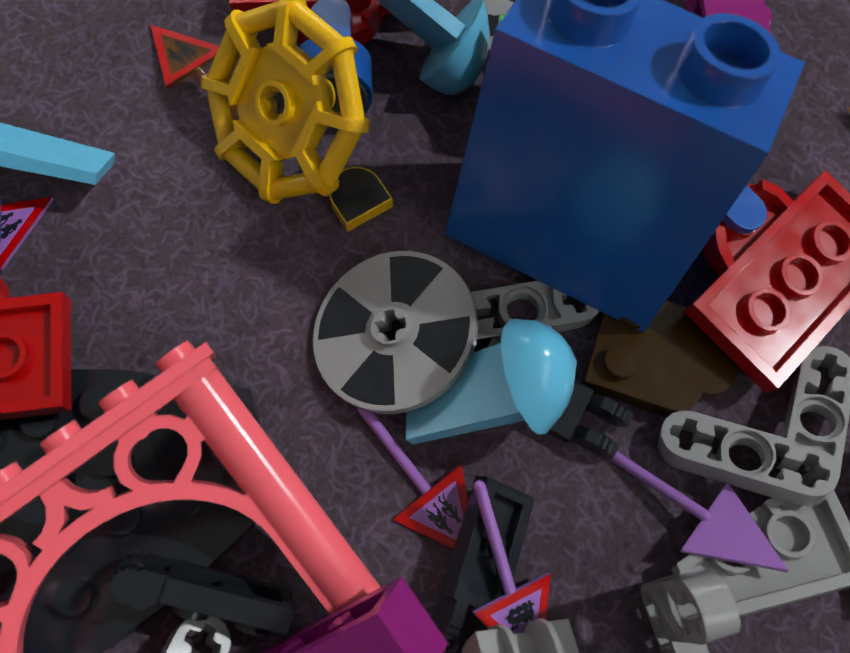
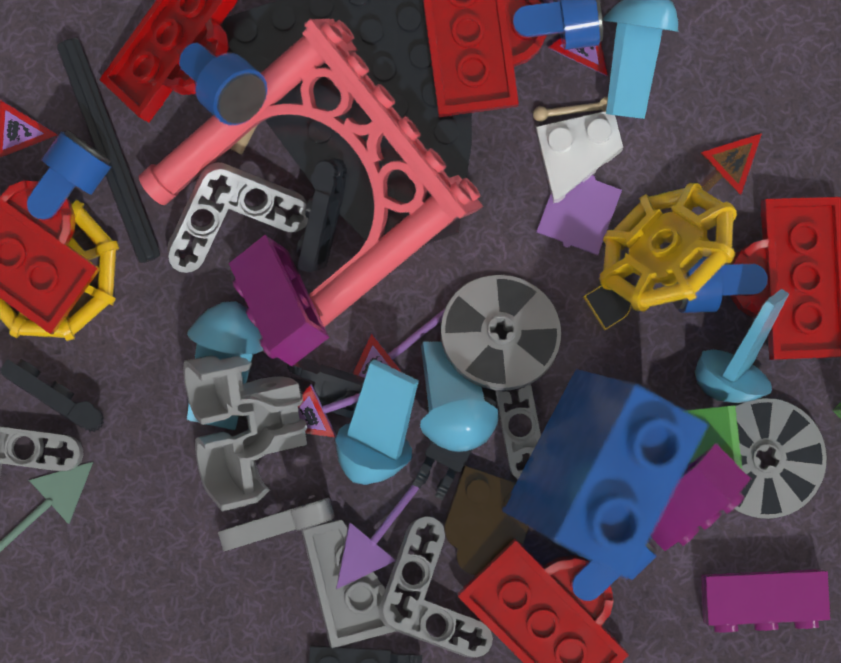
camera: 85 degrees right, 15 degrees up
(92, 199) = (541, 113): none -> tan hinge
(146, 233) = (576, 149): none -> white wing
(231, 234) = (581, 216): none -> medium lavender piece
(557, 508) = (376, 440): none -> medium azure piece

